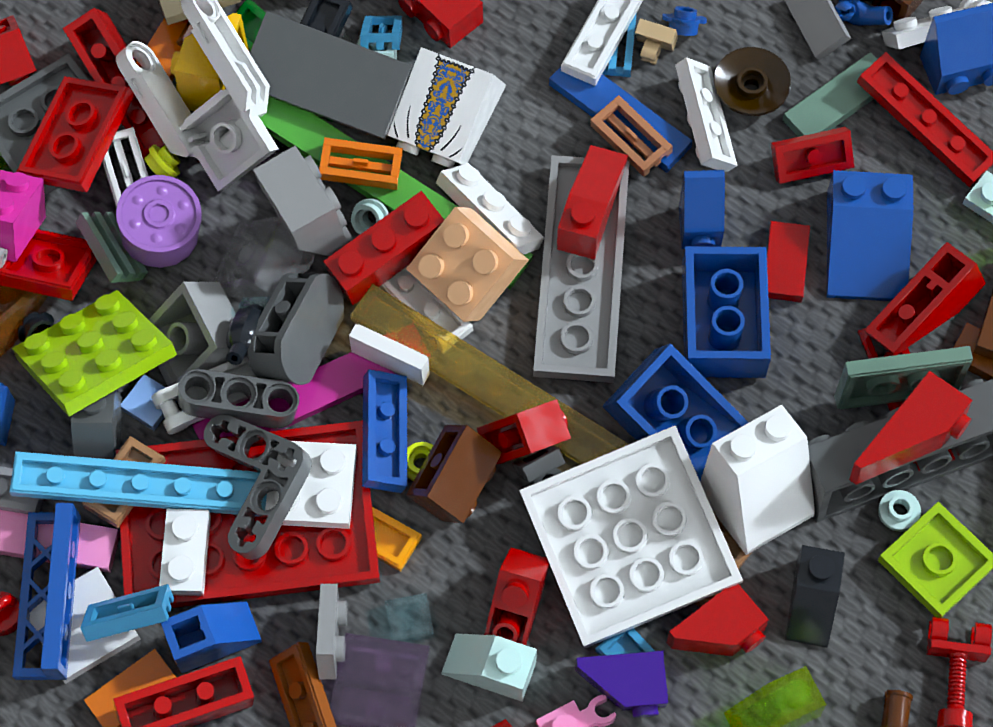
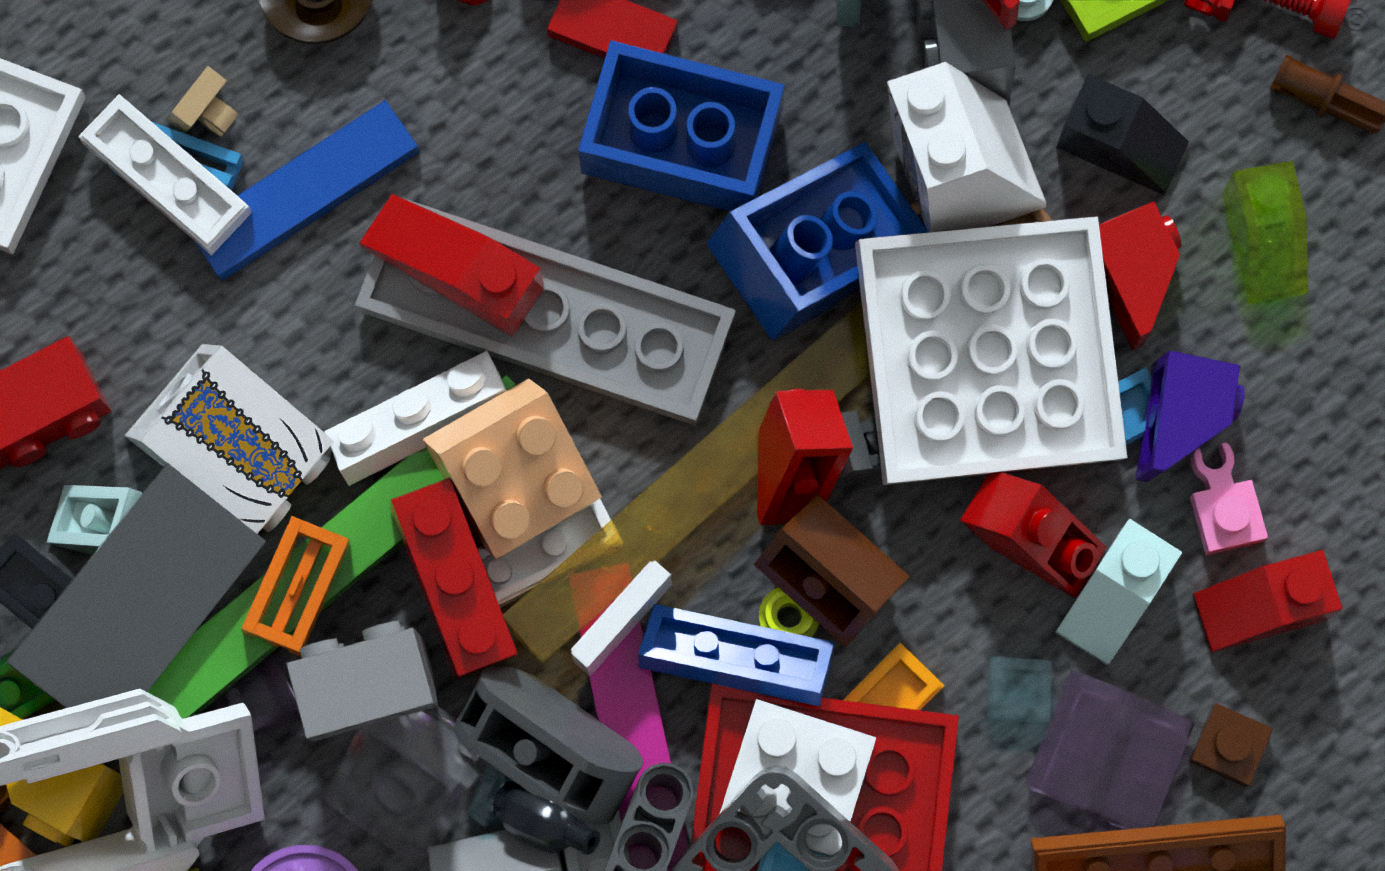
camera: 75 degrees left, 10 degrees up
(330, 646) = (1001, 795): light grey plate -> none
(360, 214) = (390, 604): light aqua plate -> none
(382, 36) = (92, 507): dark azure tile -> none
(663, 147) = (346, 161): nougat tile -> none
(684, 20) = (182, 55): blue plate -> none
(702, 208) = (517, 115): blue slope -> none
(705, 115) = (350, 69): white plate -> none

